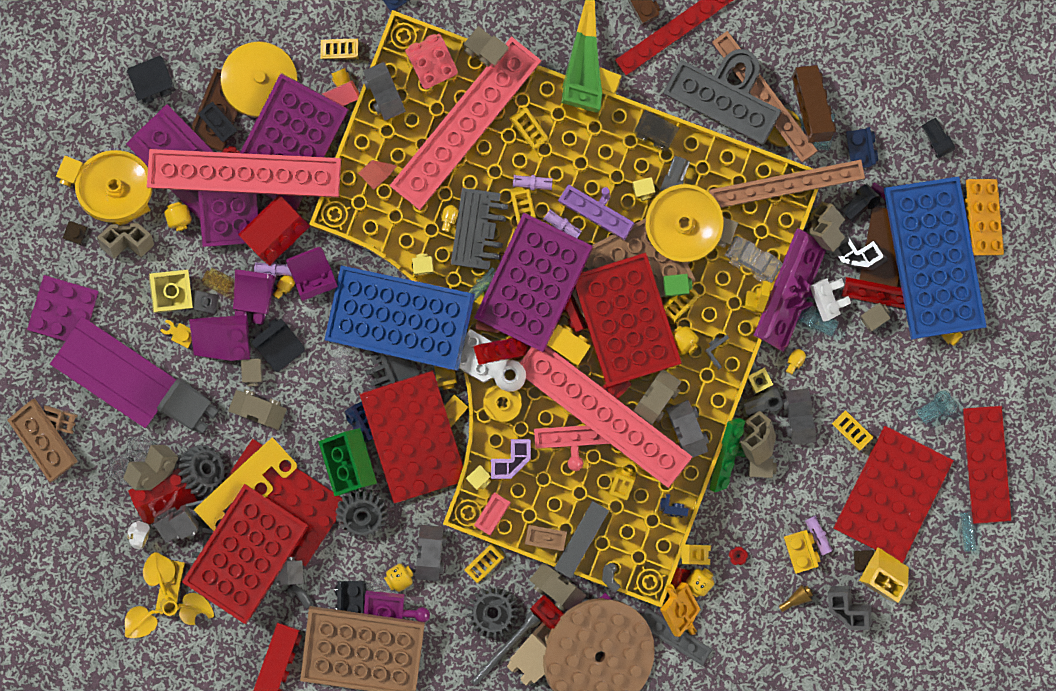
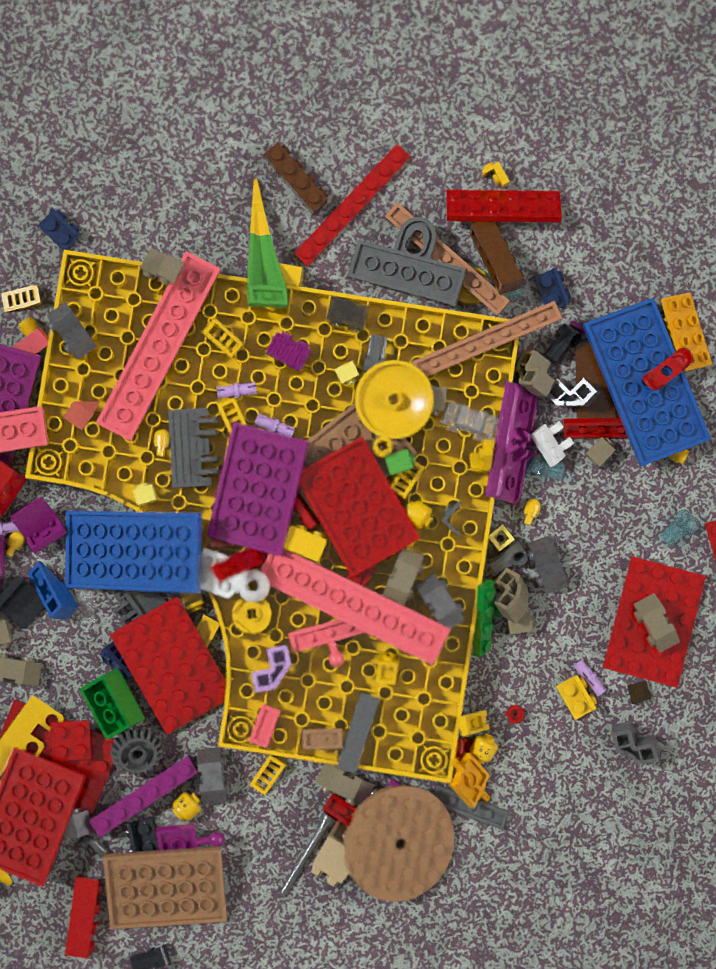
camera: 15 degrees left, 0 degrees up
(300, 489) = (70, 740): none -> red plate
(312, 344) = (53, 594): none -> blue slope
(360, 558) = (144, 796): none -> magenta brick
(431, 61) = (112, 291): coral bracket -> none
(479, 478) = (244, 693): light yellow plate -> none
(482, 284) = (207, 501): clear light blue pin -> none
(504, 608) = (281, 832): dark grey gear -> none
(591, 155) = (288, 351): none -> magenta brick
(597, 211) = (305, 405): medium lavender plate -> none
(608, 577) = (392, 764): dark grey arm -> none
(664, 261) = (383, 441): none -> yellow cone
(676, 510) = (445, 684): dark blue bracket -> none
(800, 596) = (584, 741): pearl gold cone -> none
(831, 56) = (503, 206): none -> red plate
(833, 25) = (499, 175): none -> yellow bracket
(868, 437) = (618, 571): yellow slope -> none
(886, 576) = (664, 704): yellow slope -> none
(897, 504) = (653, 616): none -> dark tan brick
(939, 140) = (624, 264): black piece -> none
(969, 244) = (677, 362): none -> red piece

